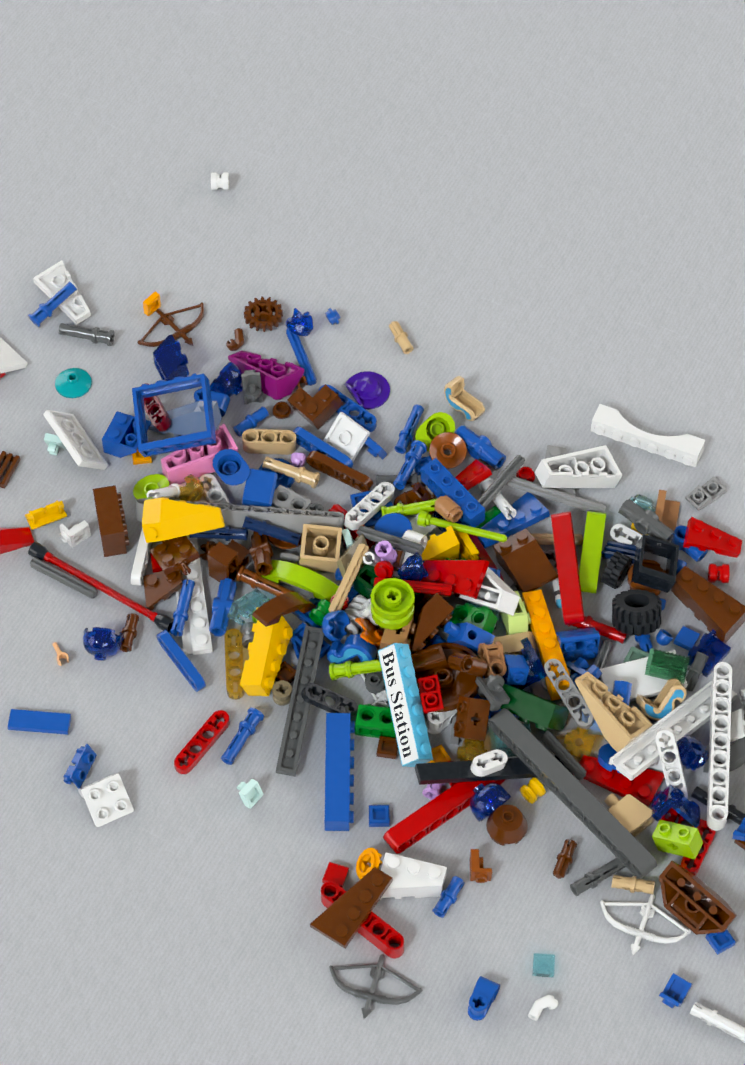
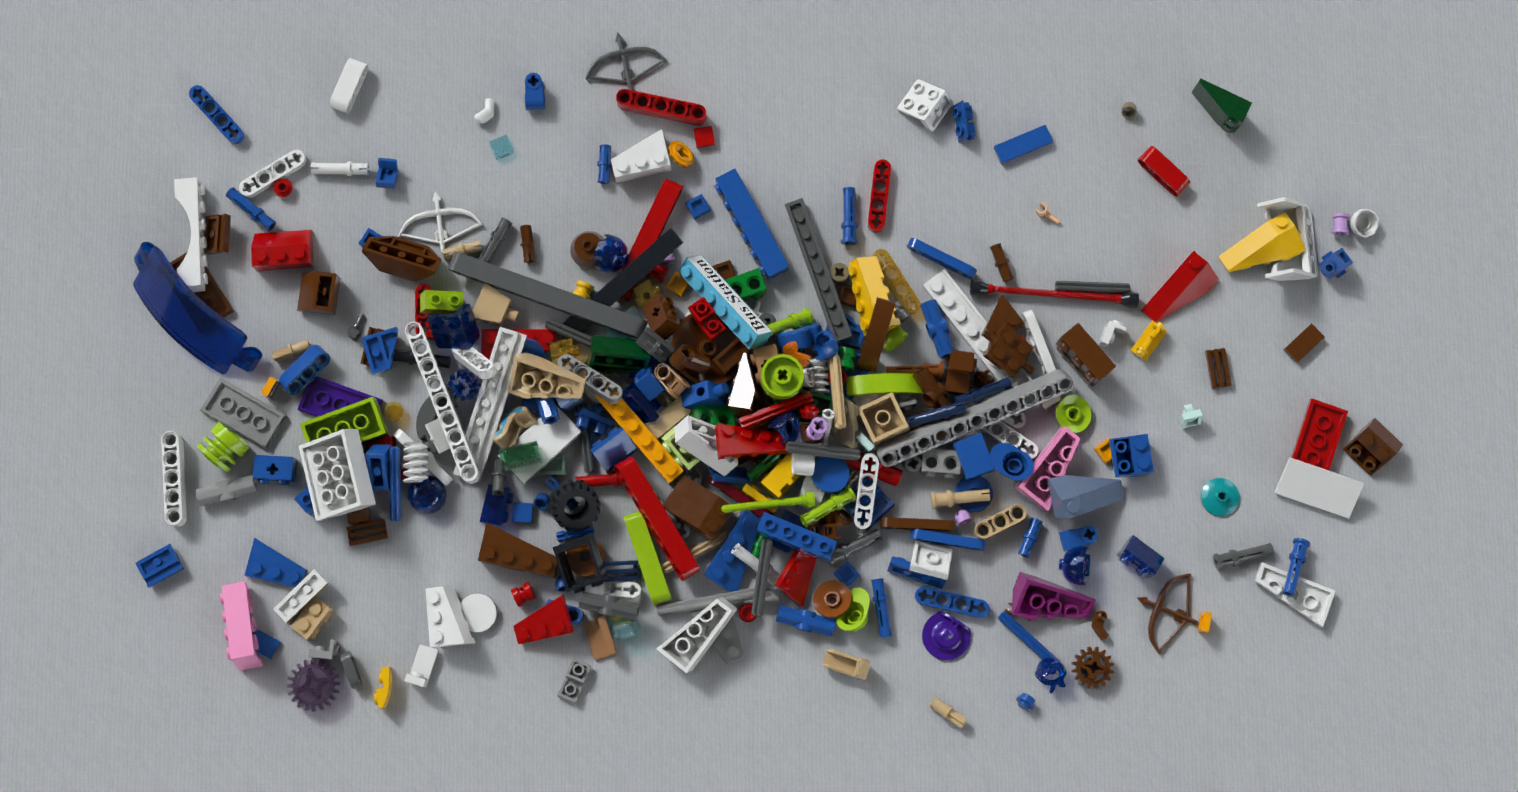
camera: 150 degrees right, 25 degrees up
(75, 440) = (1172, 425): white tile -> none
(102, 642) = (1016, 237): clear blue cylinder -> none
(162, 414) = (1109, 482): dark red beam -> none
(172, 491) = (1049, 418): white pin -> none
(172, 519) = (1027, 370): yellow wedge -> none
(176, 443) = (1101, 440): blue window -> none
(180, 615) = (966, 297): blue pin -> none
(193, 490) = (1033, 429): clear yellow hair -> none
(246, 606) = (911, 334): clear light blue hinge -> none
(250, 792) = (812, 168): light aqua tile -> none
(251, 386) = (1049, 568): dark grey hips -> none
(281, 410) = (1010, 566): reddish brown plate -> none
(316, 408) = (979, 577): reddish brown brick -> none
(317, 690) = (802, 283): black beam -> none
(350, 911) = (670, 102): reddish brown wing -> none
(412, 459) = (857, 568): blue pin -> none
(448, 509) = (789, 512): medium nougat brick -> none
(477, 872) = (595, 201): dark orange bracket -> none
(490, 765) = (622, 279): white beam -> none
(616, 570) = (613, 543): black tyre -> none
(680, 448) = (616, 720): white arch -> none

